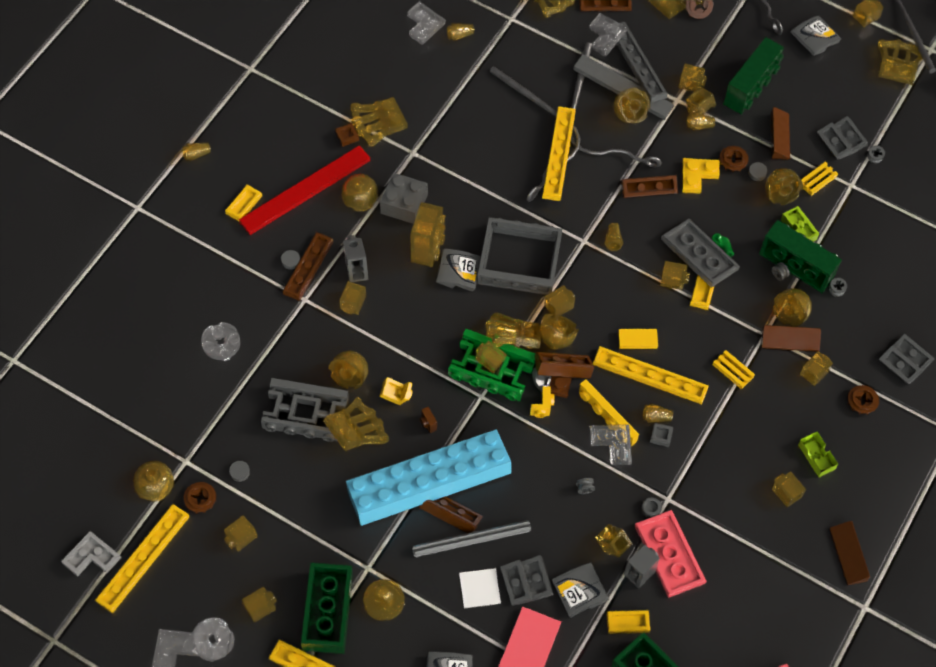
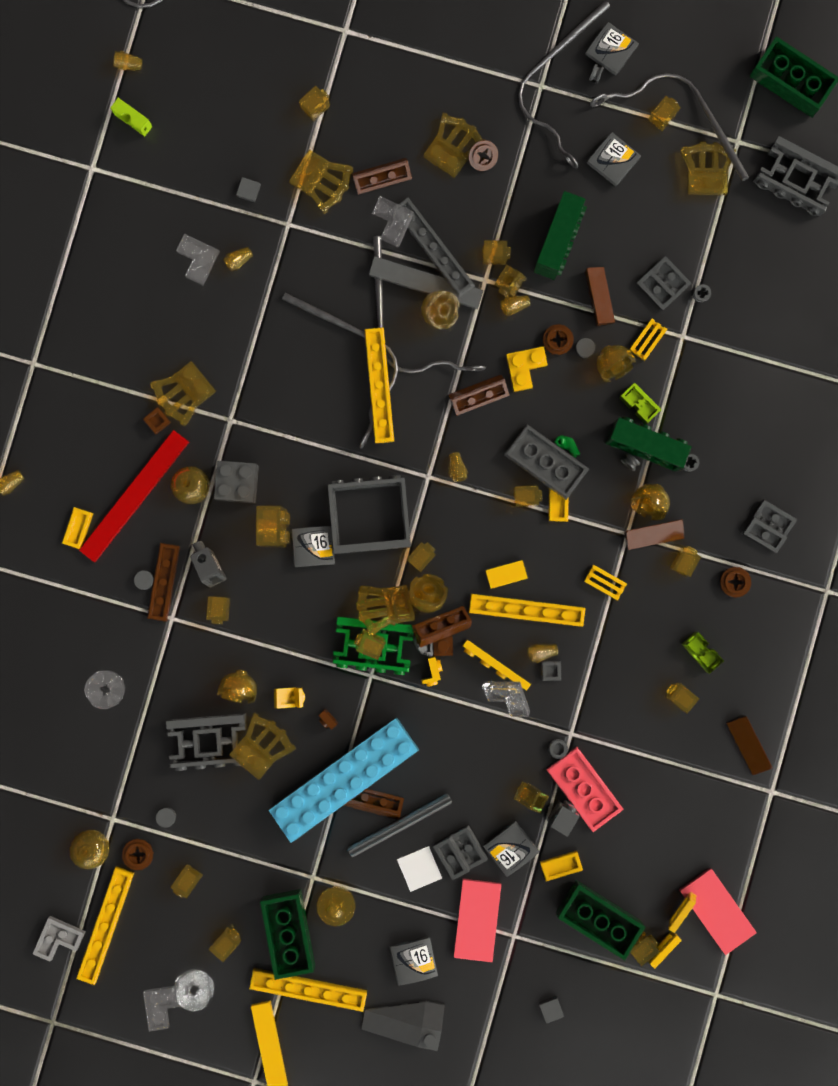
camera: 10 degrees left, 25 degrees up
(585, 486) = (492, 746): dark grey bush -> none

